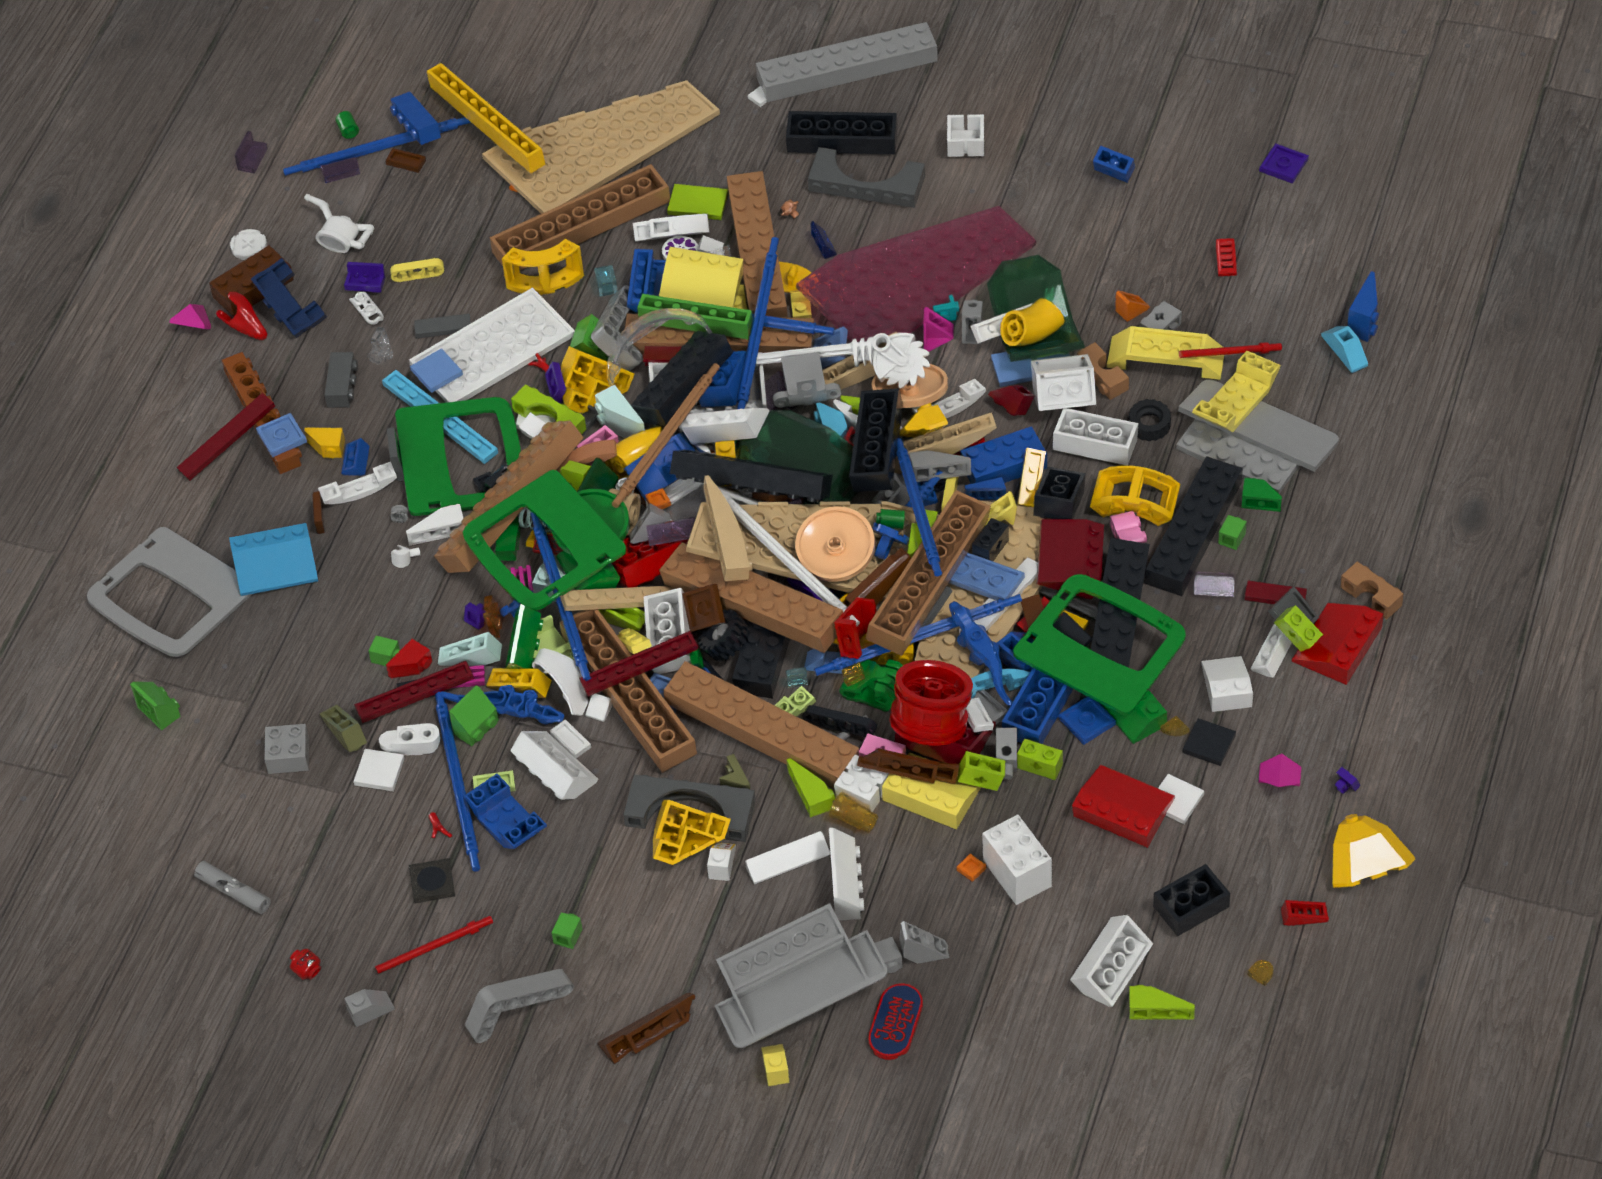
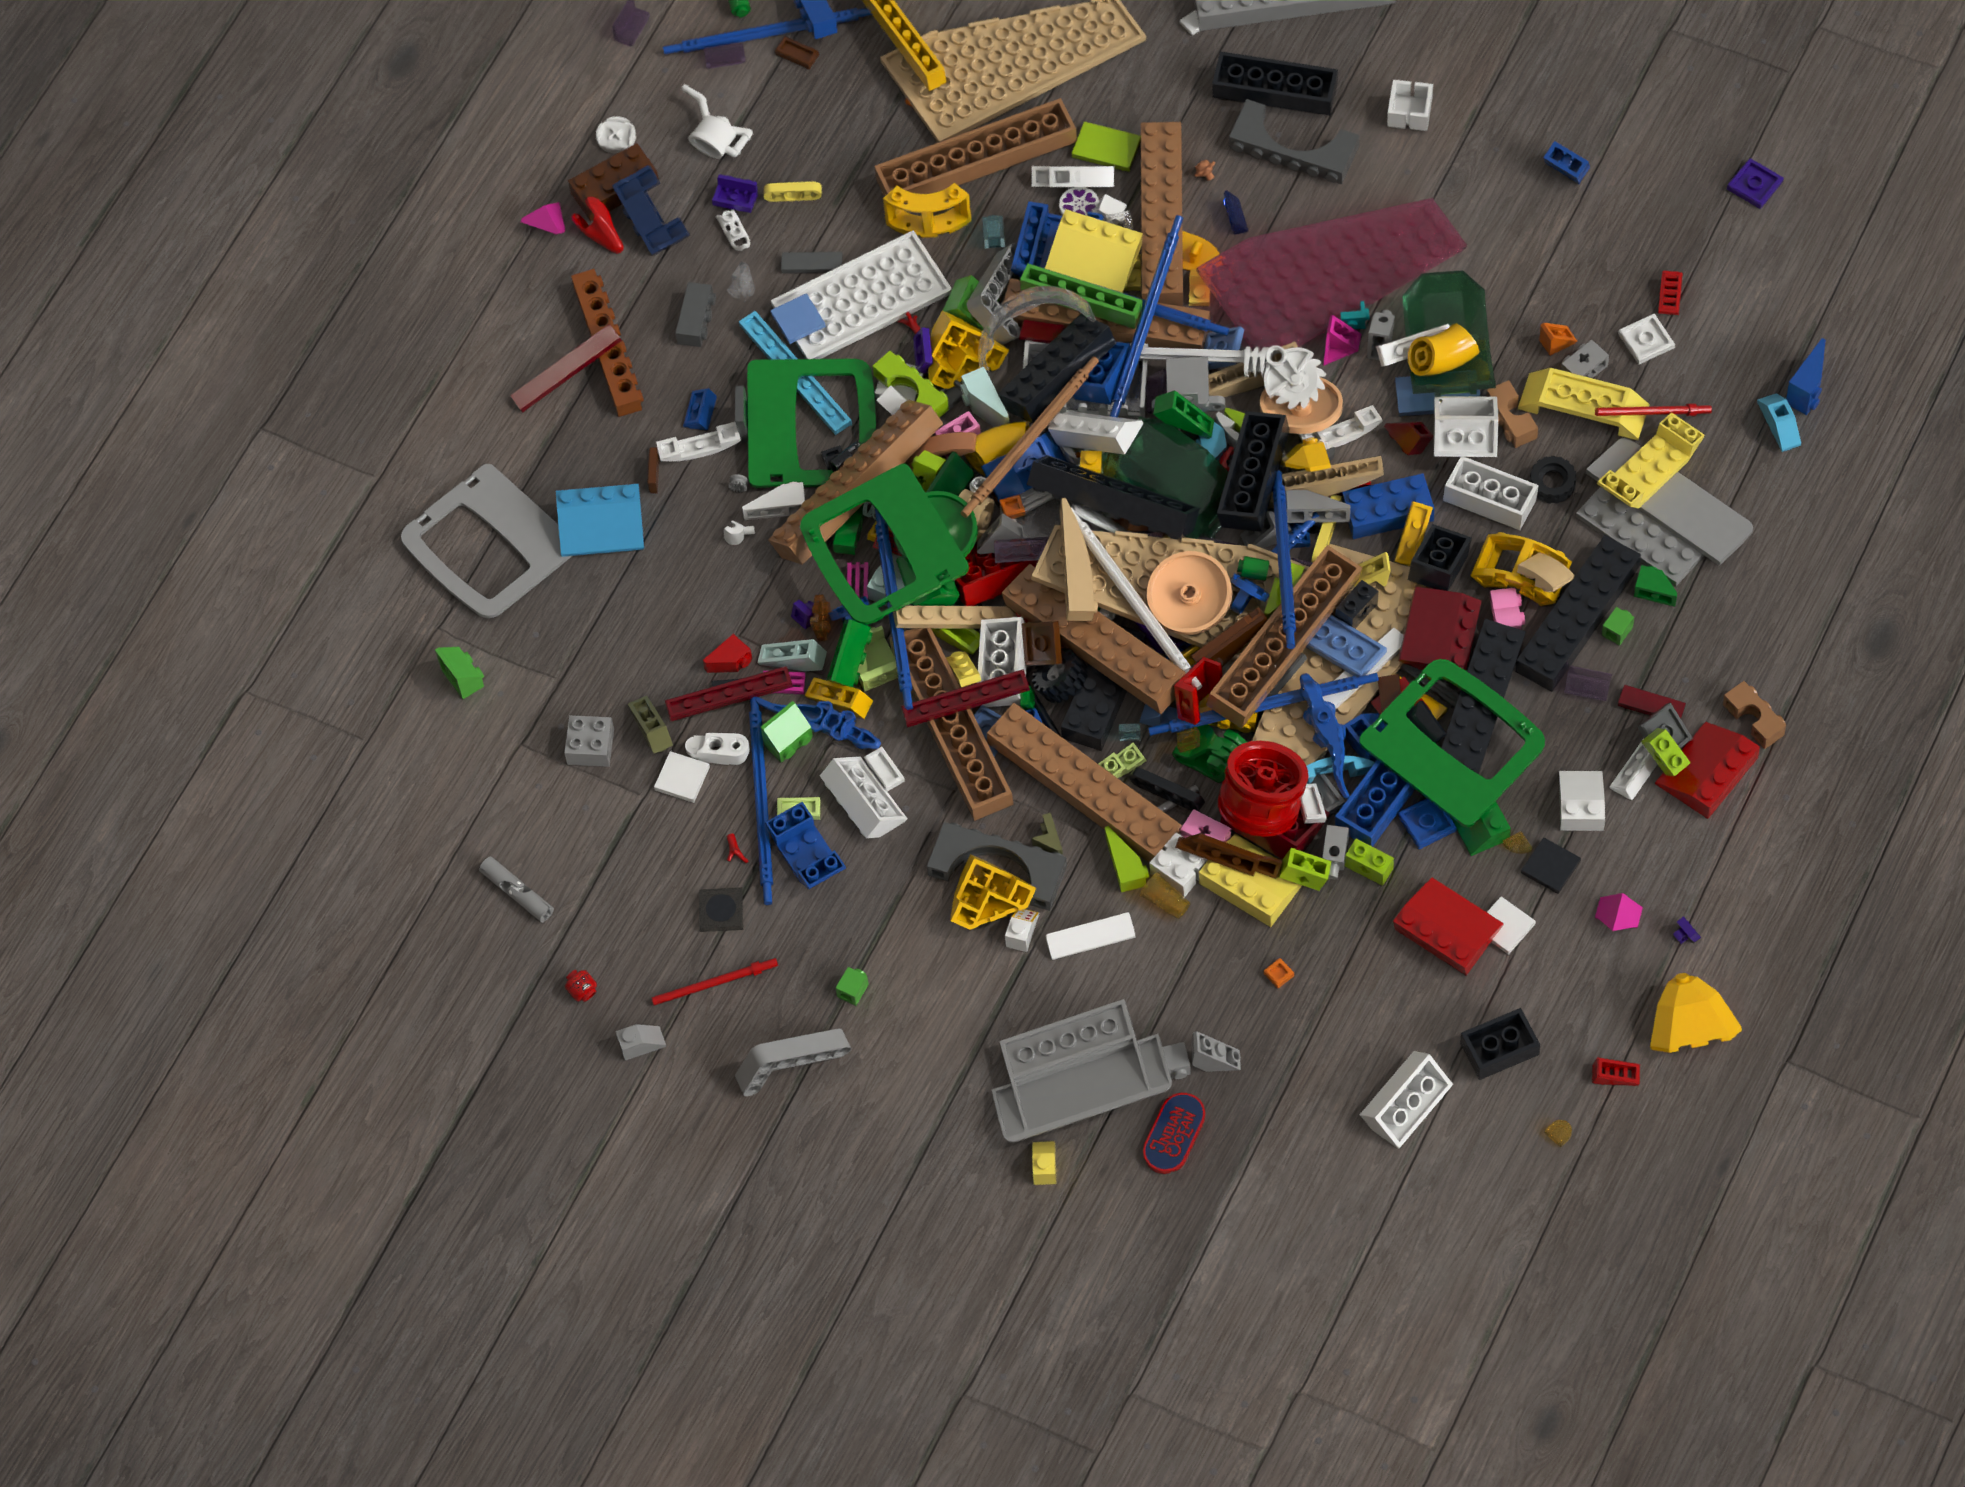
camera: 10 degrees right, 10 degrees up
(281, 435) = (624, 375): medium blue tile -> none
(326, 441) = (671, 386): yellow slope -> none
(383, 650) = (702, 641): bright green brick -> none
(566, 676) = (887, 700): white panel -> none
(599, 707) = (918, 738): white slope -> none
(648, 1029) = (920, 1105): reddish brown wedge -> none
(801, 400) = (1182, 414): none -> green slope
(845, 875) = (1146, 966): white slope -> none
(986, 490) = (1363, 540): blue slope -> none
(1017, 859) = (1326, 974): white container -> none
(1152, 1003) = (1440, 1152): lime slope -> none
(1159, 491) = (1548, 572): none -> tan slope
(1211, 297) = (1646, 339): none -> white tile

